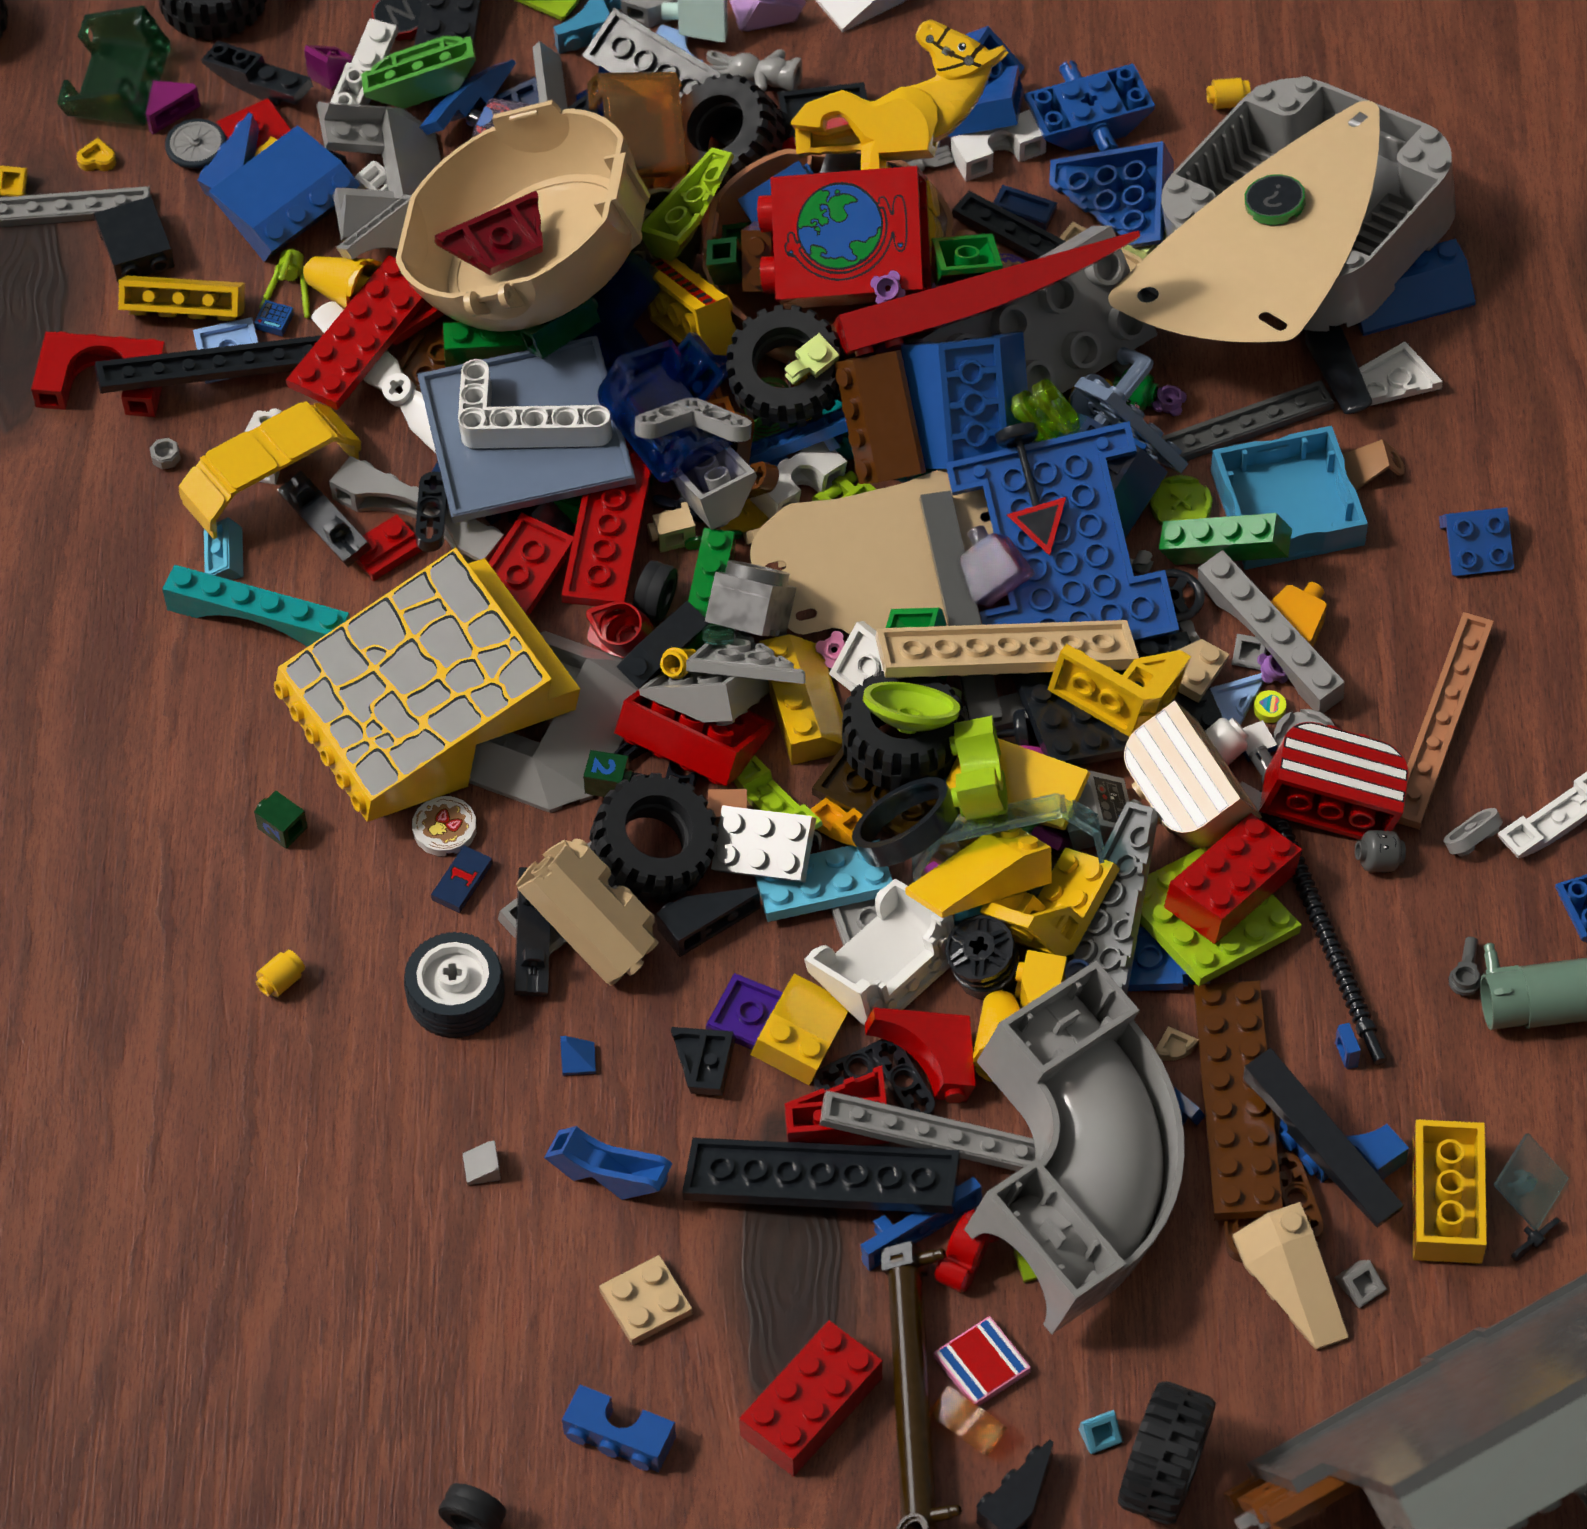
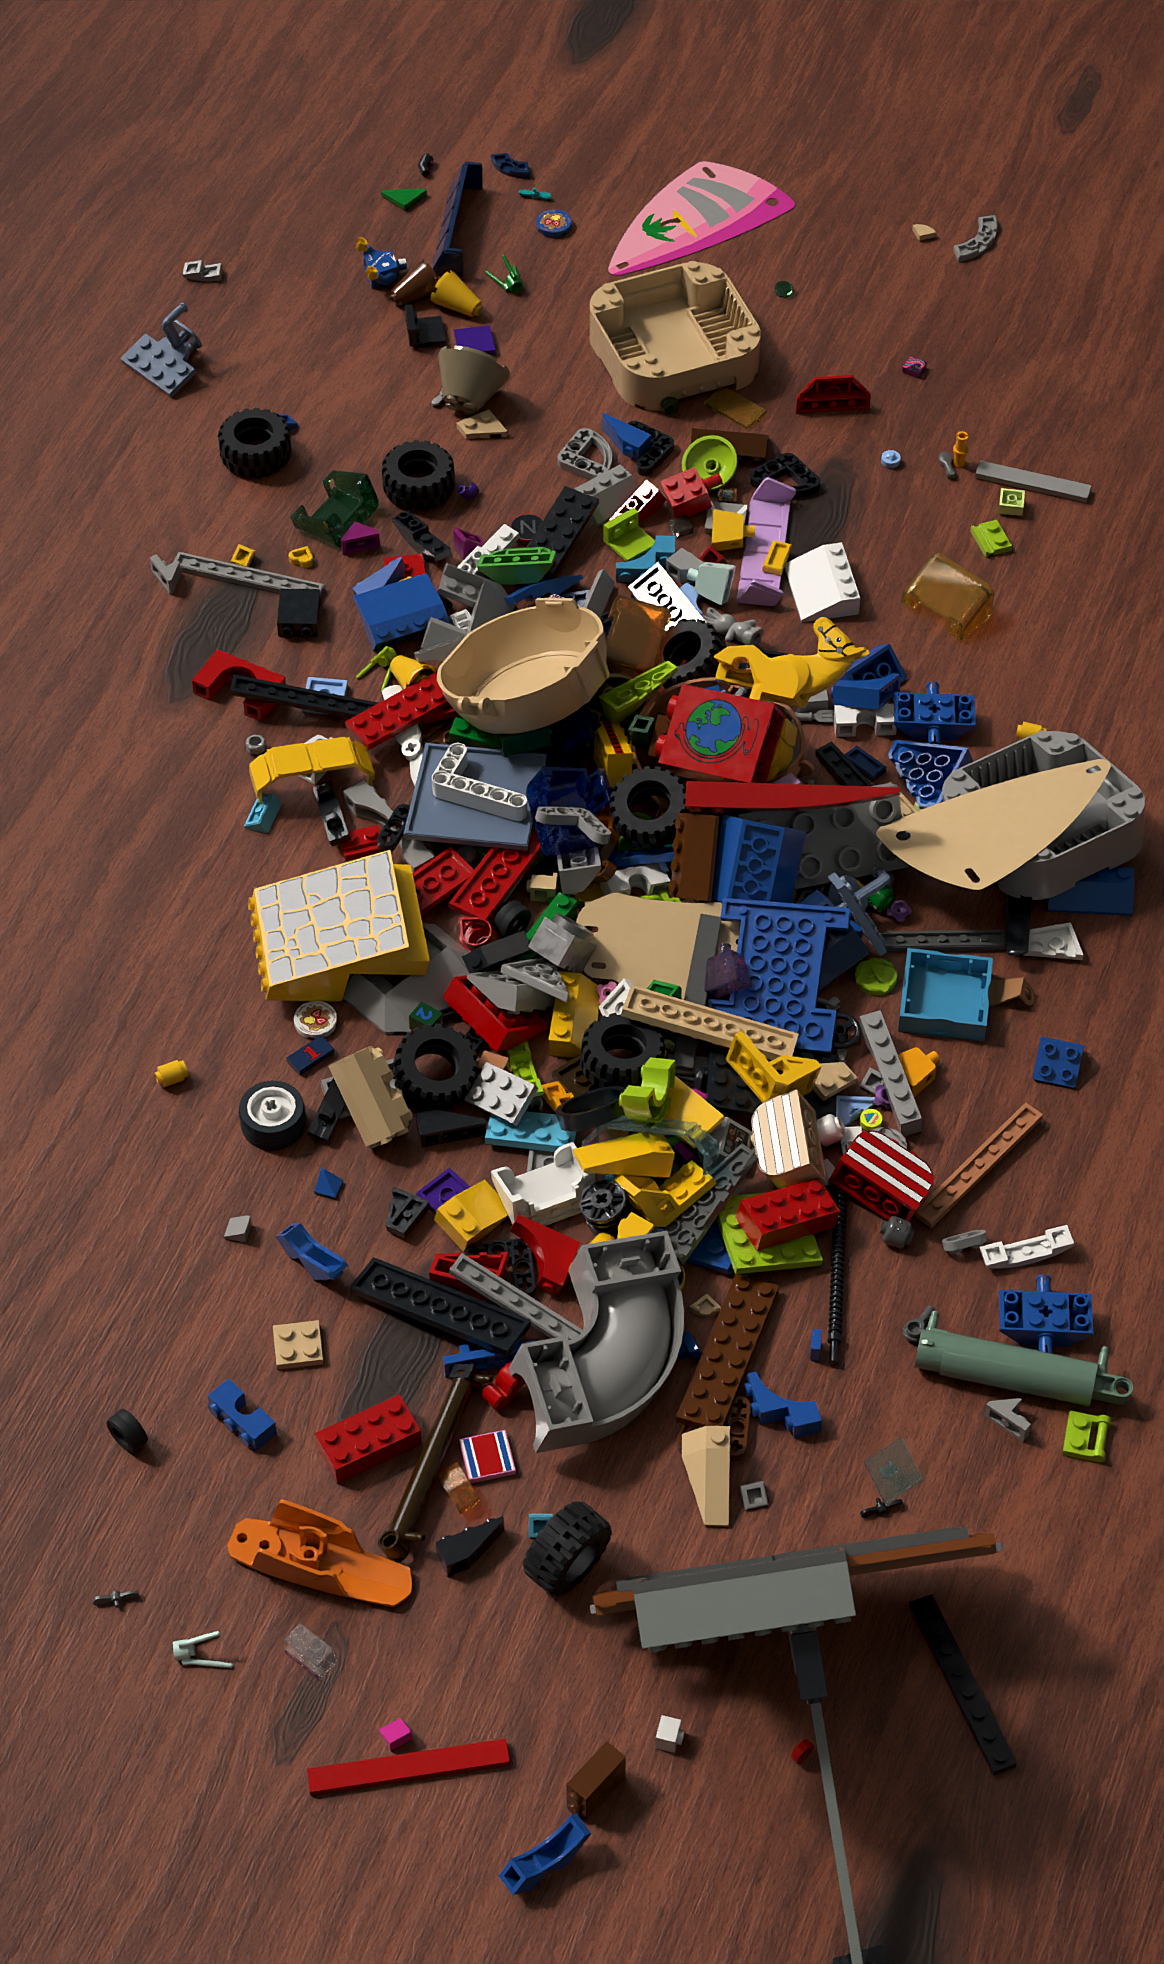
camera: 20 degrees right, 5 degrees down
(181, 296) = (310, 654): yellow brick -> none
(194, 142) = (363, 565): light grey wheel -> none
(205, 594) = (236, 834): teal arch -> none
(273, 318) = (361, 685): blue tile -> none
(280, 819) = (217, 982): dark green brick -> none
(498, 236) = (508, 672): dark red wing -> none
(674, 662) = (495, 963): yellow cone -> none
(718, 635) = (533, 958): clear green tile -> none
(812, 357) = (666, 805): yellowish green plate -> none
(880, 283) = (724, 770): medium lavender plate -> none
(911, 706) = (625, 1037): lime dish -> none
(963, 257) = (787, 771): green slope -> none
(1041, 520) = (770, 953): black piece -> none
(1046, 409) = (800, 885): clear neon green brick -> none
(1238, 536) = (894, 1005): green brick -> none
(1274, 199) = (1012, 801): black tile -> none
(1321, 1137) = (765, 1393): black slope -> none
(1449, 1191) = (835, 1456): yellow brick -> none

